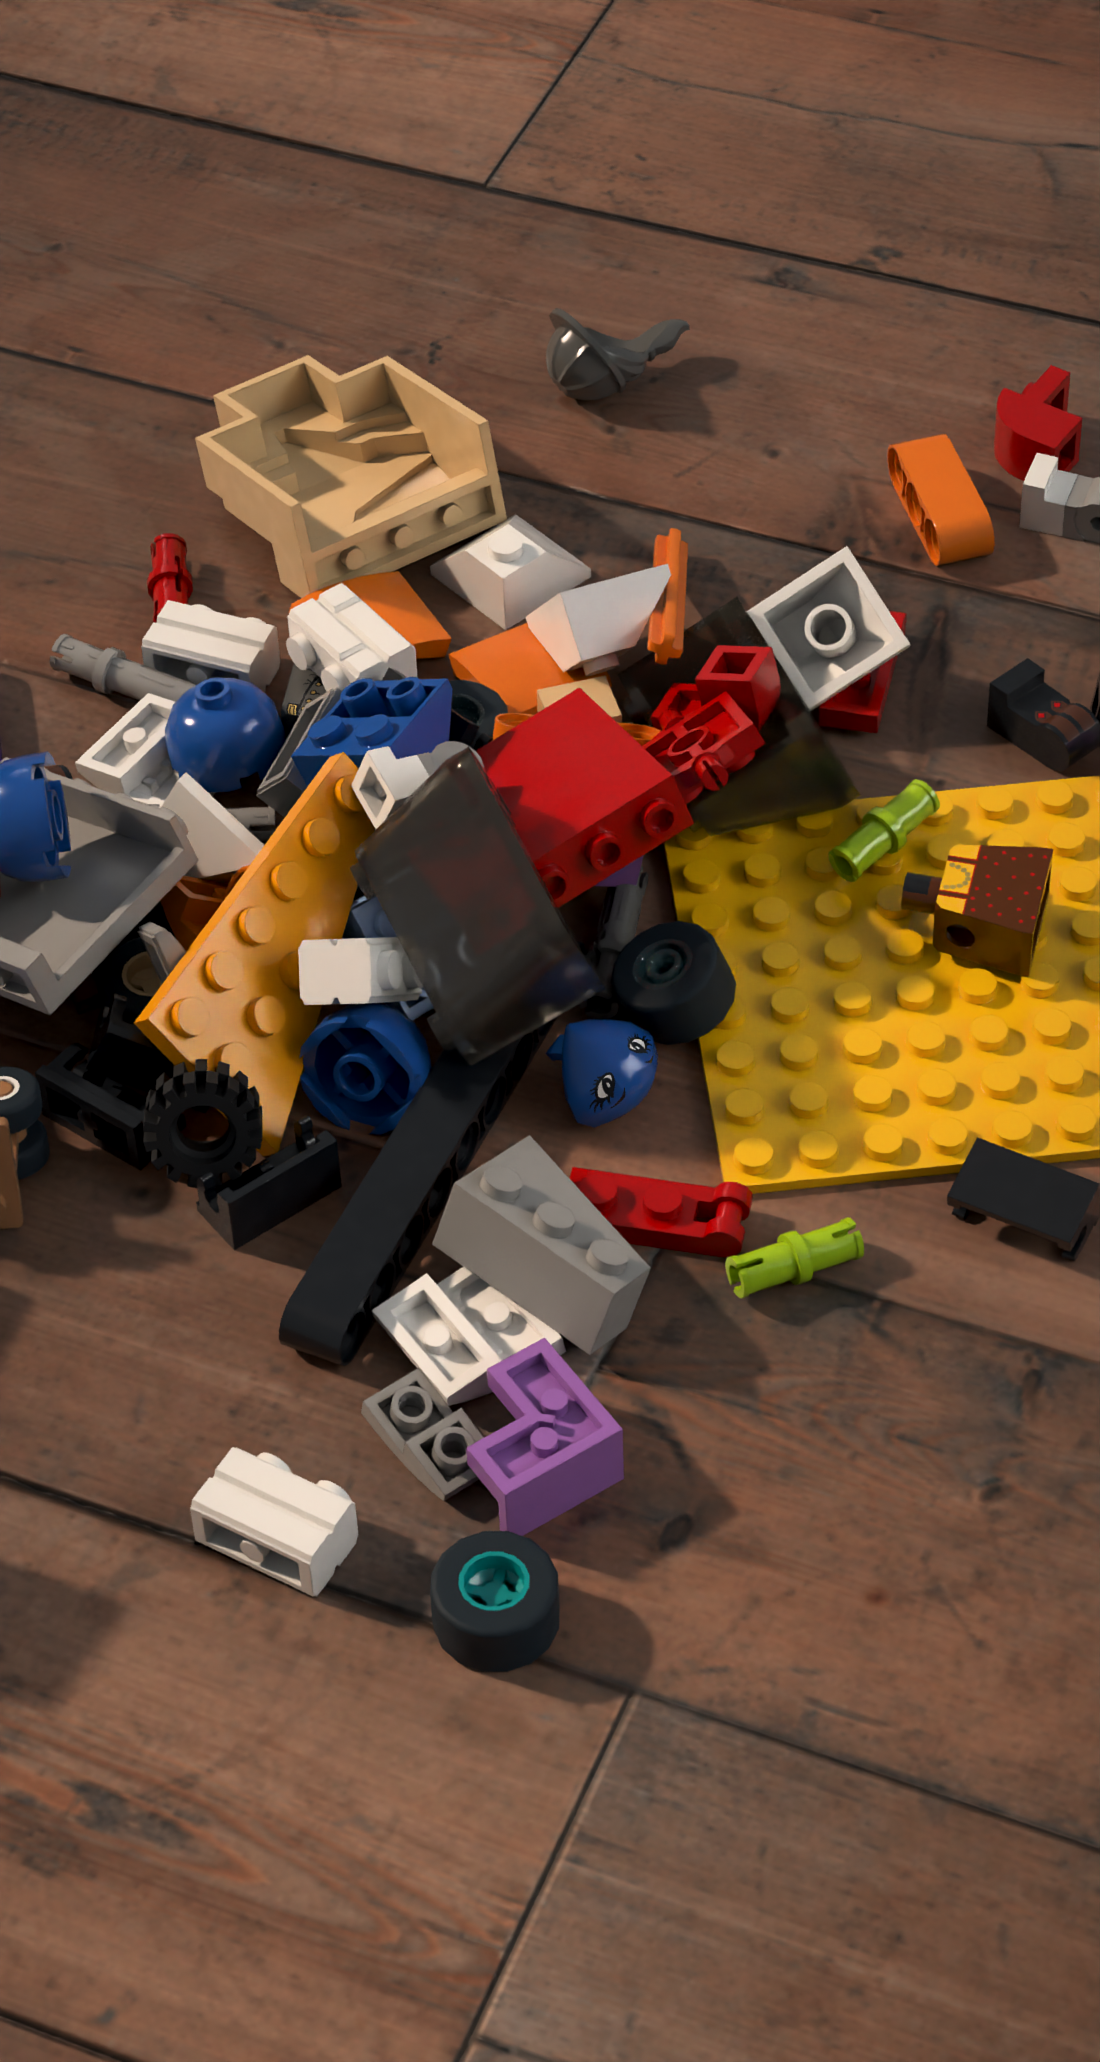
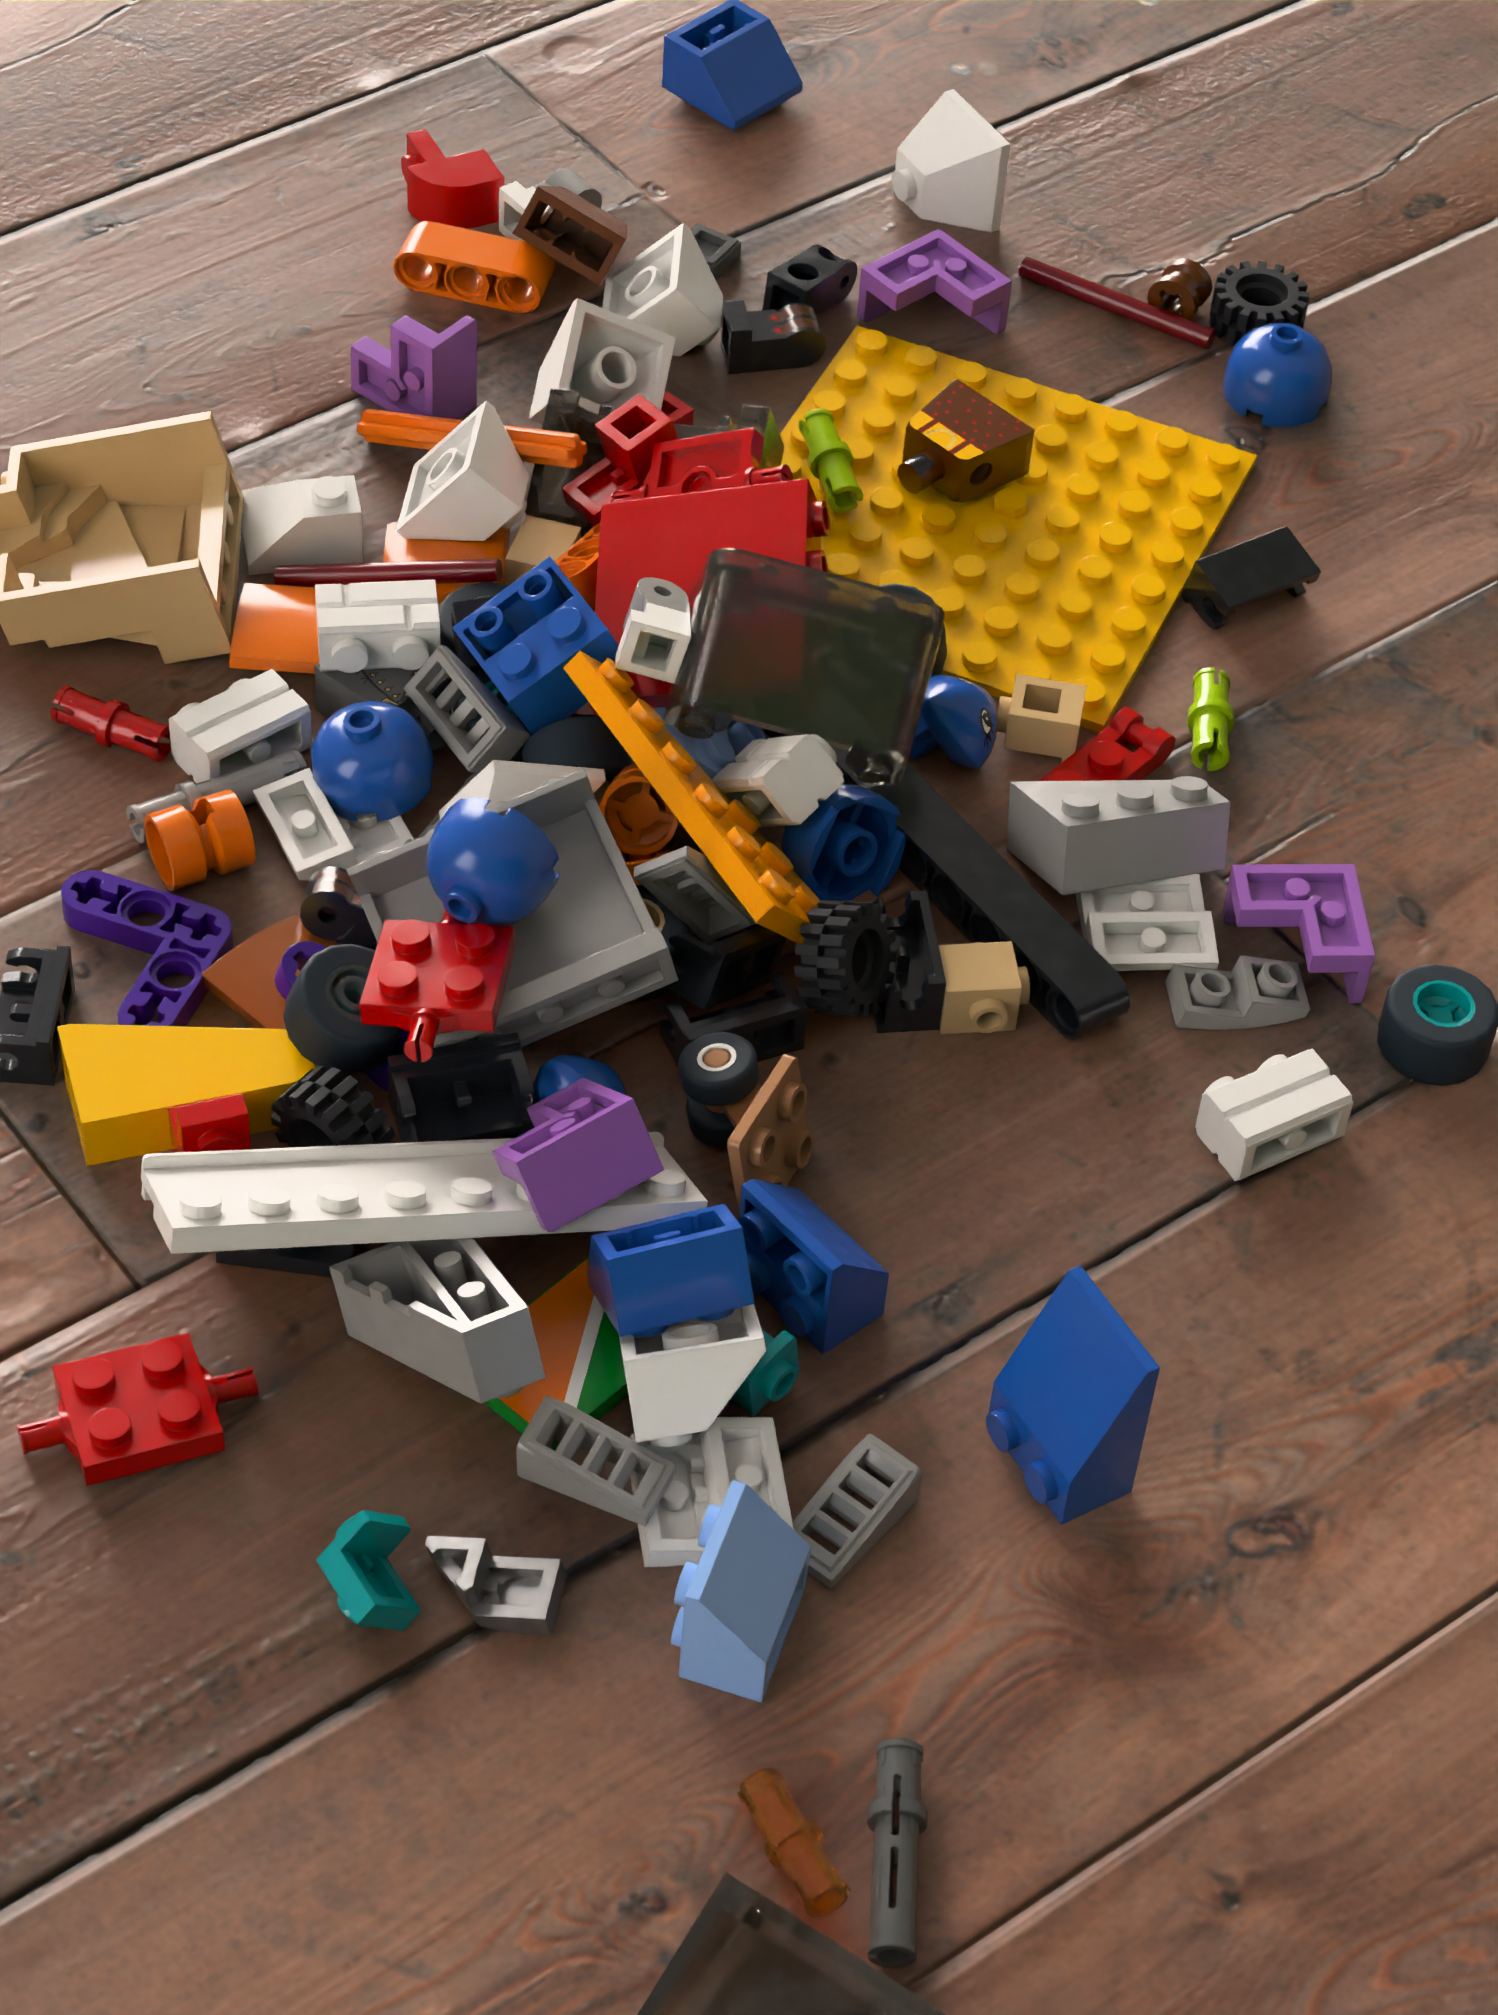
camera: 65 degrees left, 0 degrees up
(60, 690) = (206, 838): none -> orange wheel
(273, 1239) = (982, 987): none -> tan brick
(473, 640) = (344, 573): none -> dark red bar
(597, 365) = (114, 351): dark grey piece -> none
(675, 1134) = (1042, 716): none -> tan brick
(745, 538) = (422, 370): none -> medium lavender panel
(1012, 628) = (669, 291): none -> white slope
(1024, 523) = (572, 231): none -> reddish brown torso

